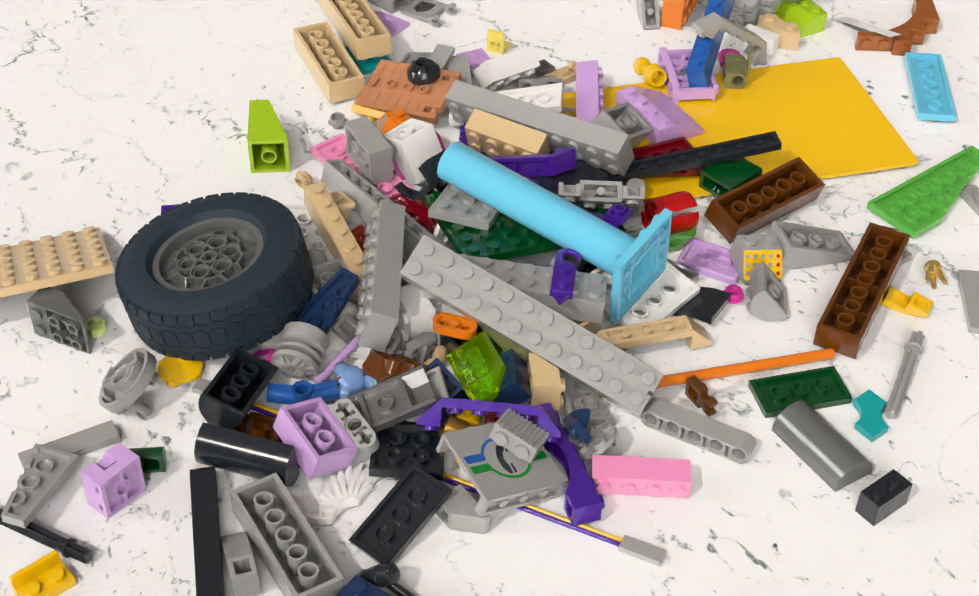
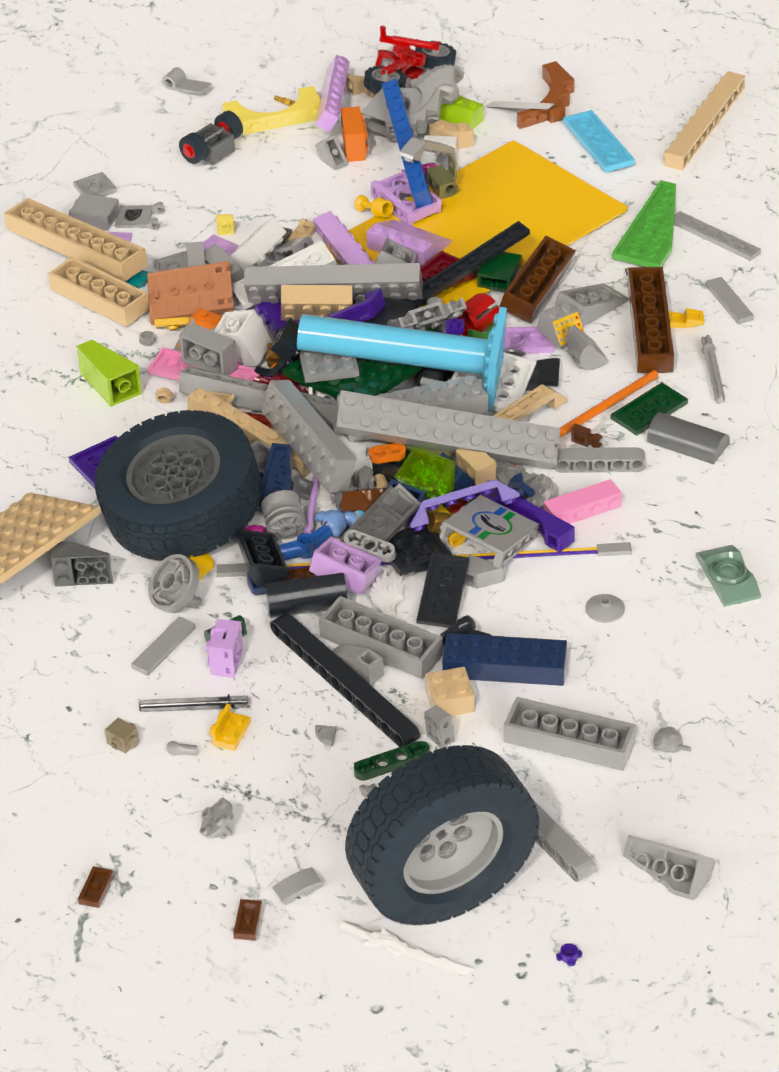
camera: 25 degrees left, 0 degrees up
(40, 480) = (170, 671): light grey wing -> none
(423, 71) = (197, 274): black piece -> none
(519, 435) = (492, 505): light grey brick -> none
(563, 276) = (448, 385): dark purple plate -> none
(736, 293) = (562, 355): dark pink plate -> none
(871, 422) = (704, 403): teal tile -> none
(883, 497) = (749, 453): black brick -> none
(934, 269) = (689, 287): pearl gold piece -> none

